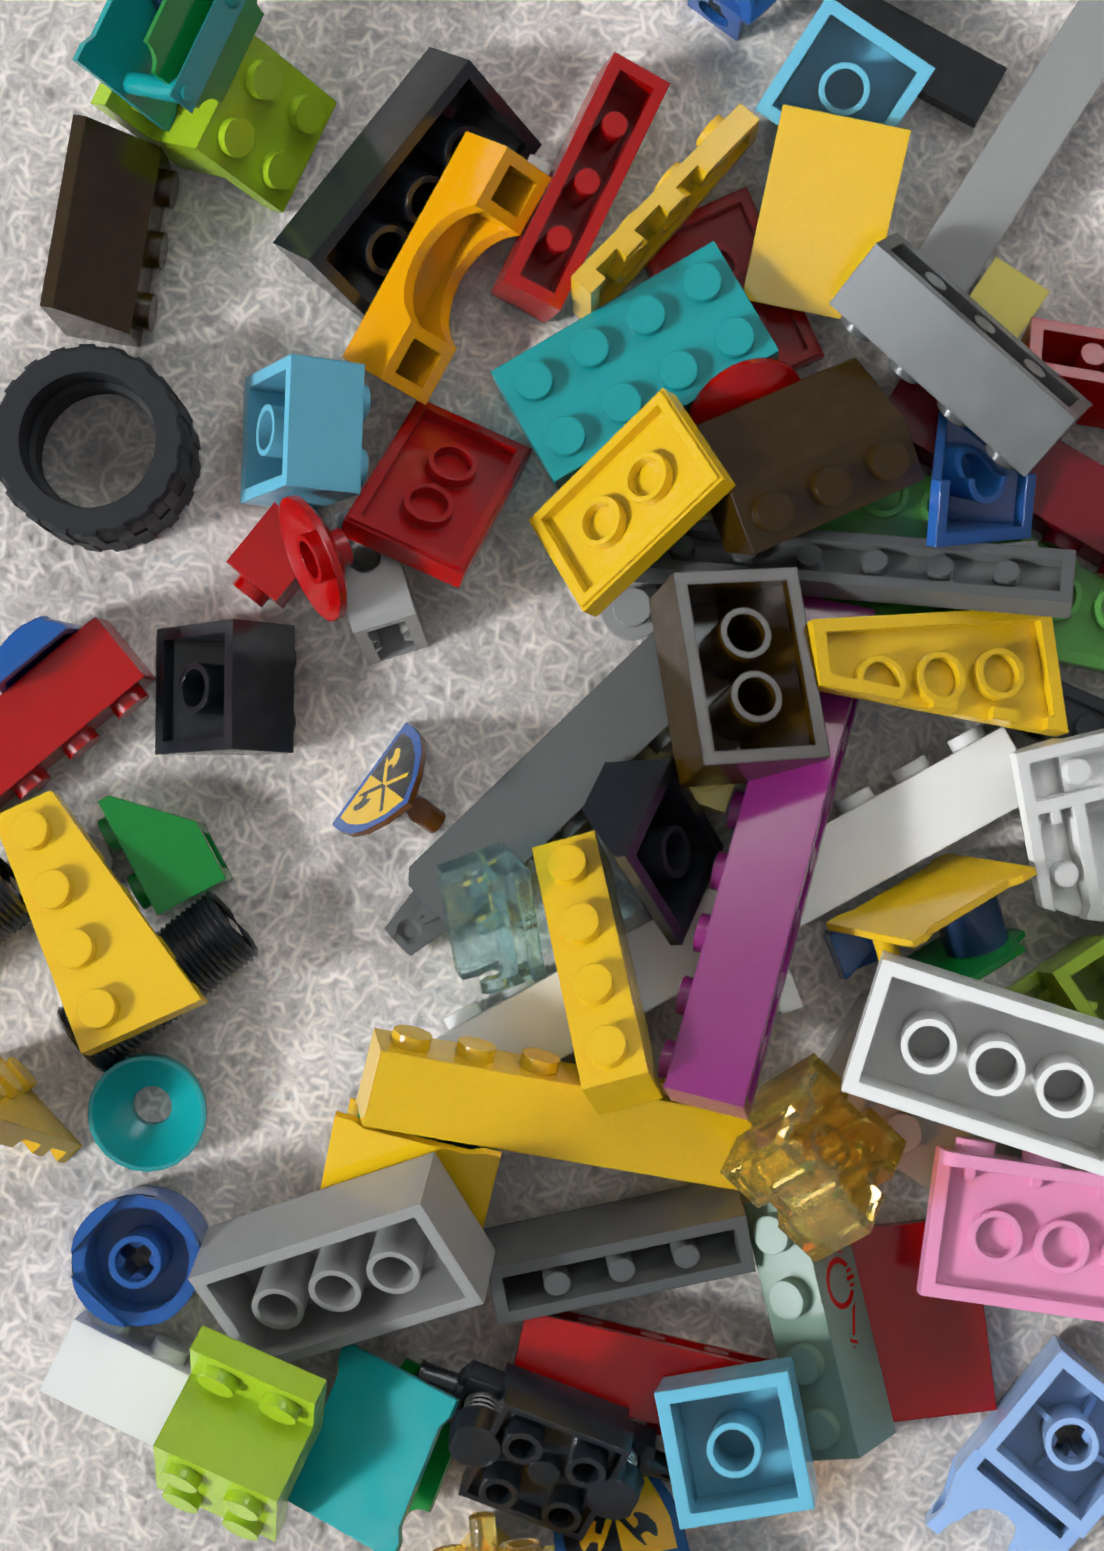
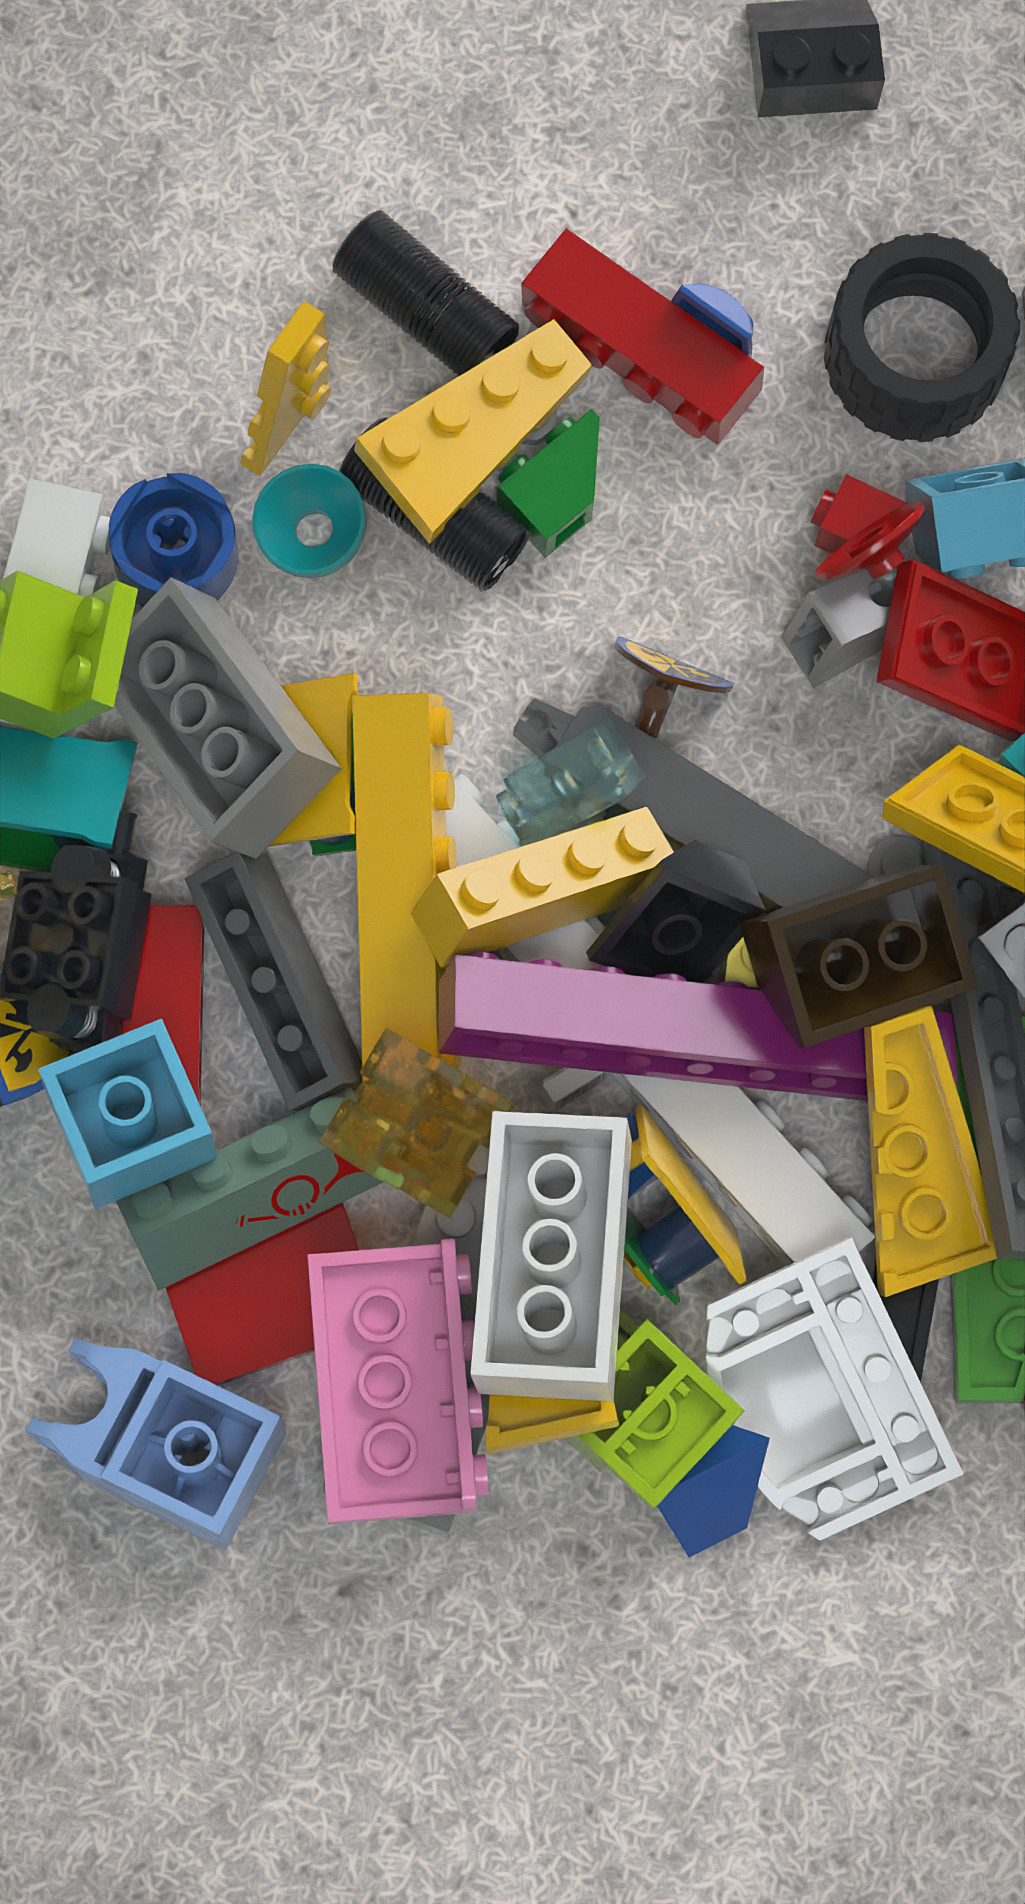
camera: 65 degrees right, 10 degrees down
(225, 688) = (725, 507): black slope -> none

